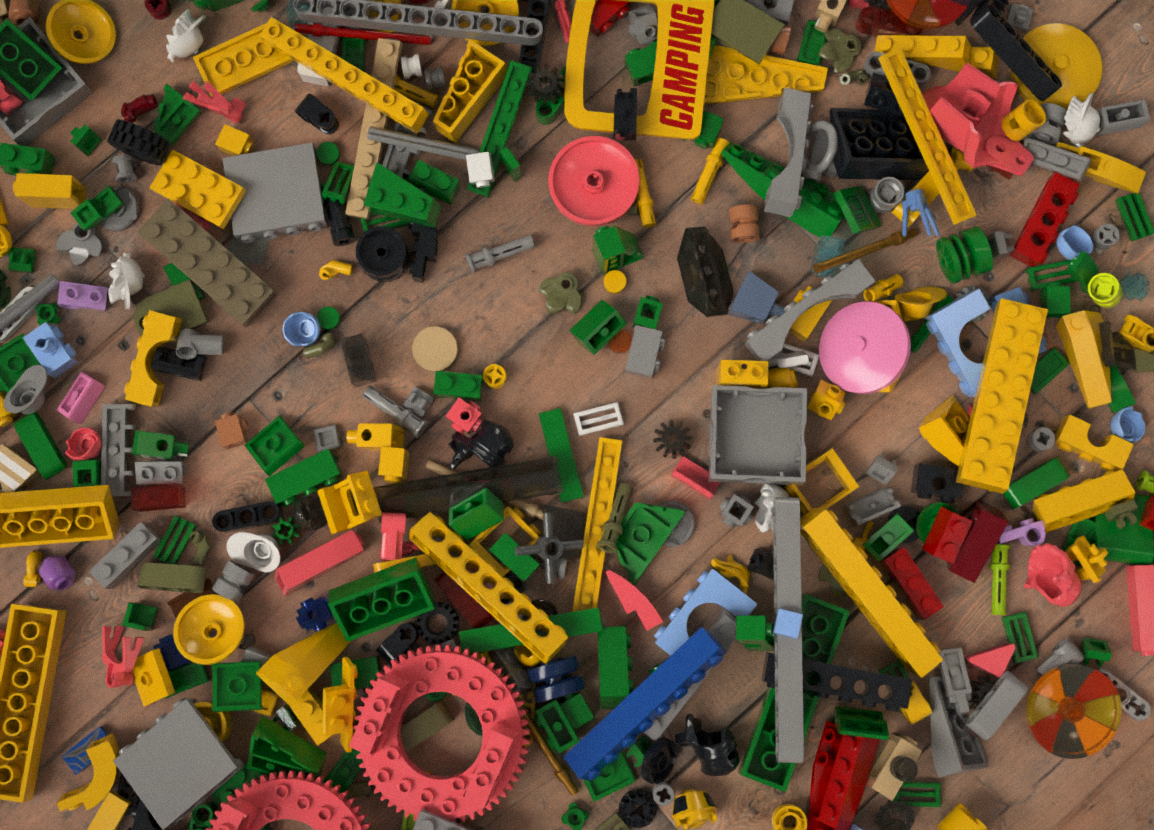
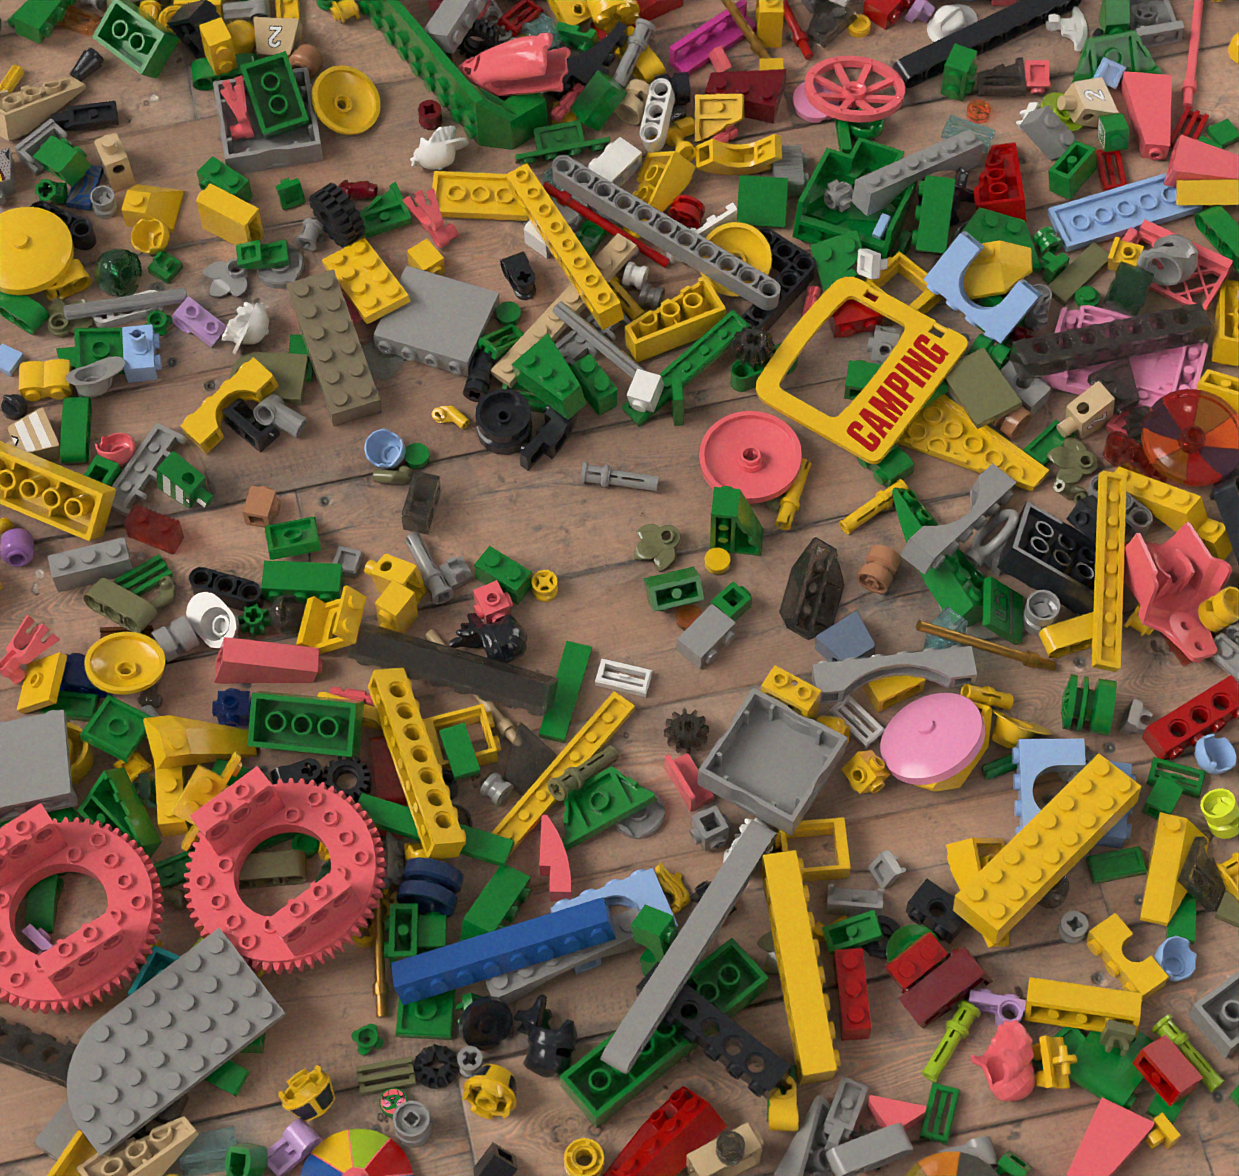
camera: 30 degrees right, 20 degrees down
(80, 398) = (140, 410): bright pink slope -> none
(140, 616) = (66, 625): green panel -> none
(159, 472) = (170, 505): light grey hinge -> none
(393, 529) = (358, 665): coral piece -> none
(435, 349) = (502, 531): tan tile -> none
(476, 514) = (447, 691): green brick -> none
(541, 544) = (493, 769): dark grey bar -> none
(625, 115) = (815, 407): black hinge -> none
(787, 623) = (691, 932): light blue tile -> none
(789, 360) = (846, 713): white tile -> none
(860, 723) = (716, 1097): green slope -> none
(917, 202) = (1064, 630): medium blue plant -> none
(1036, 482) = (1048, 964): green beam -> none
(1083, 270) = (1207, 776): green slope -> none

